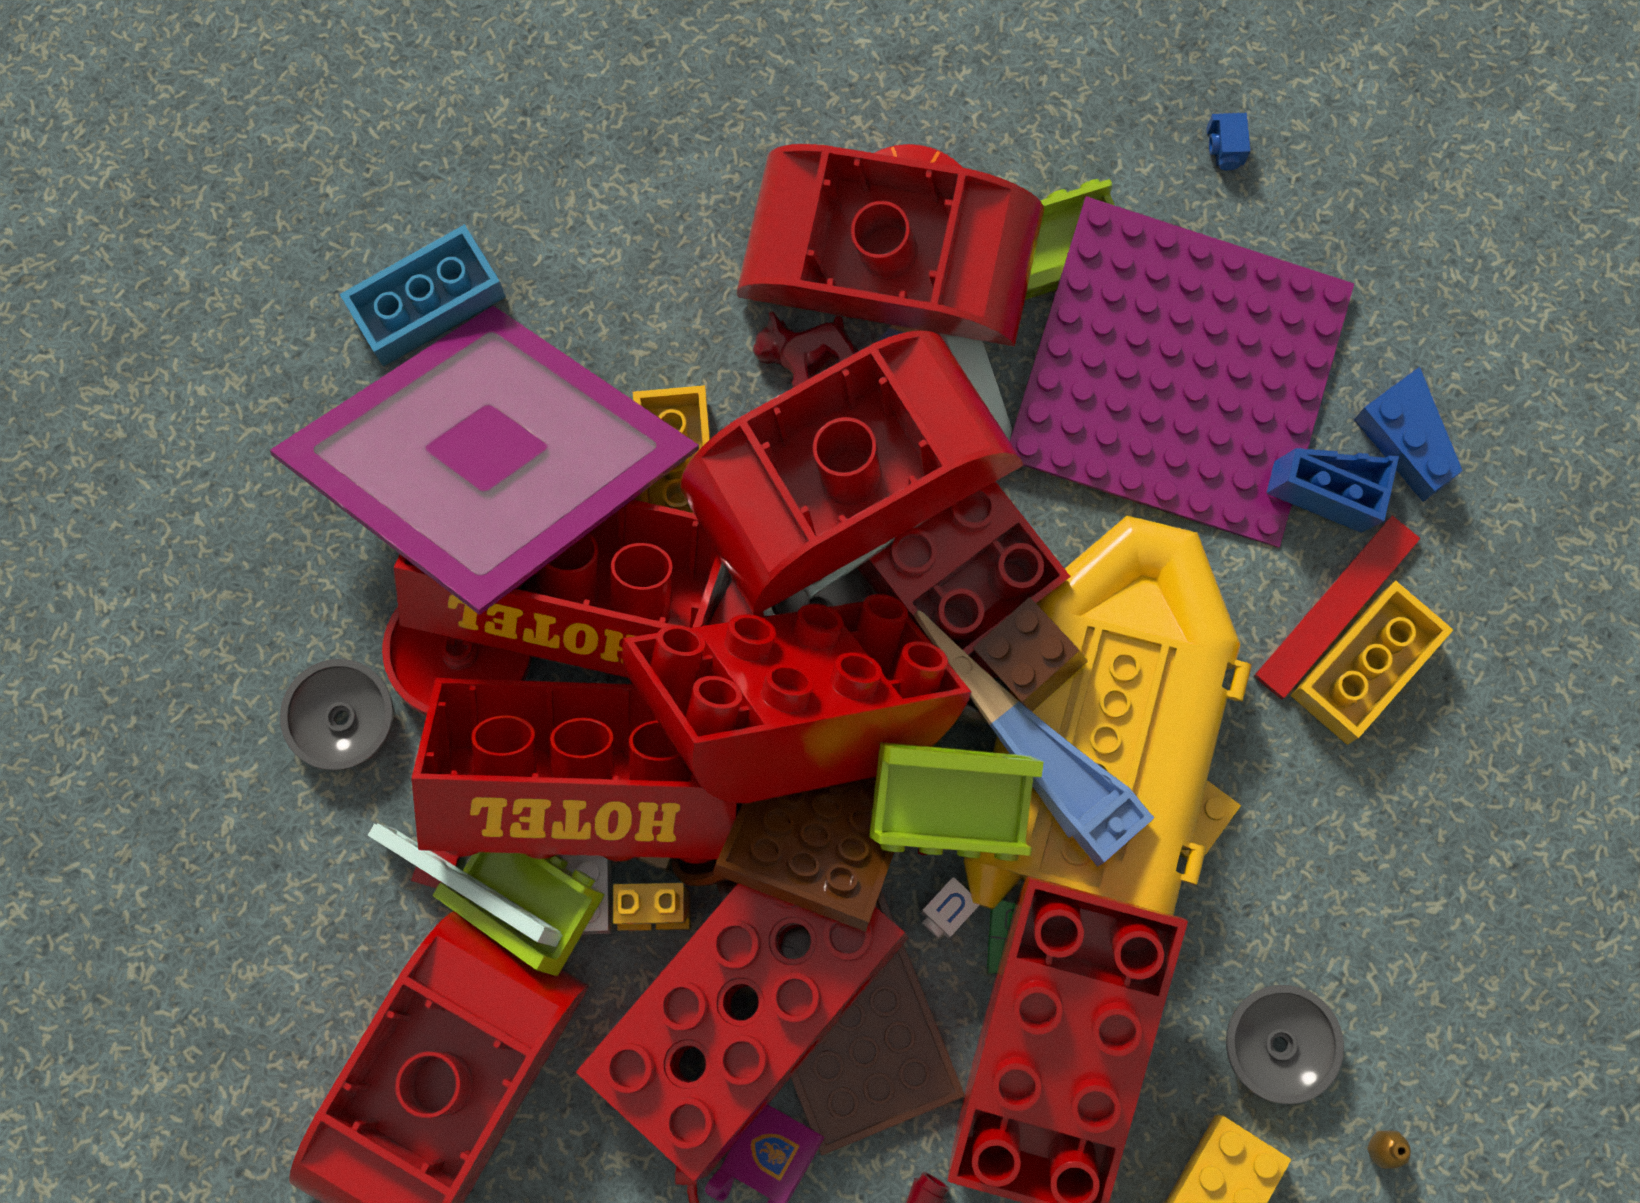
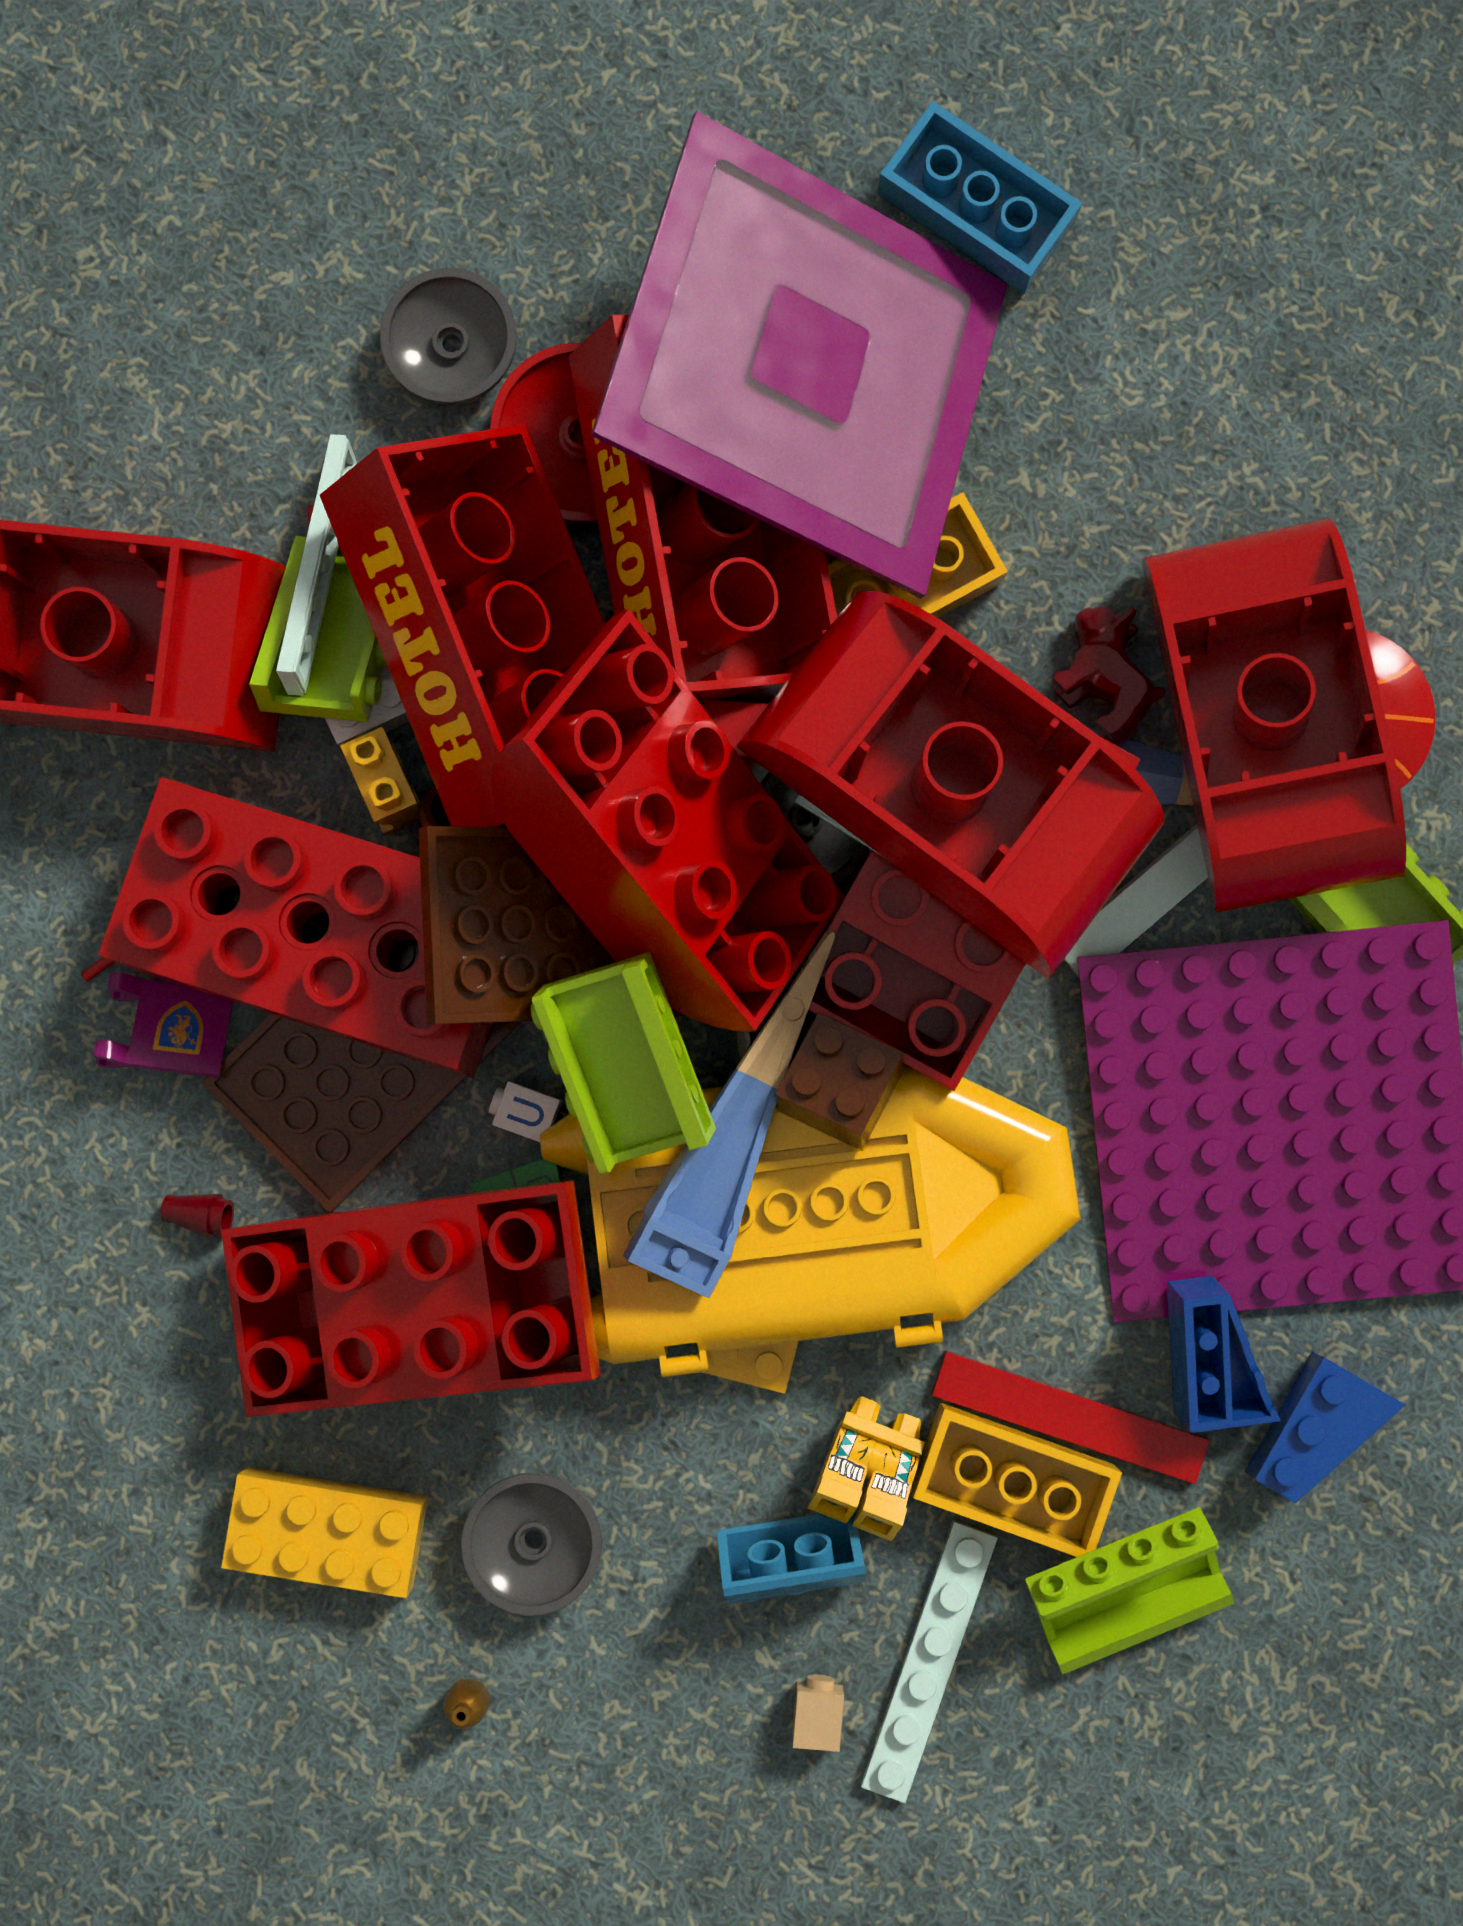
camera: 70 degrees right, 10 degrees up
(1324, 763) = (874, 1453): none -> yellow hips
(1367, 849) = (789, 1557): none -> dark azure slope
(1482, 785) = (929, 1661): none -> light aqua plate
(1484, 613) = (1130, 1590): none -> lime panel
(1493, 882) = (818, 1714): none -> tan brick

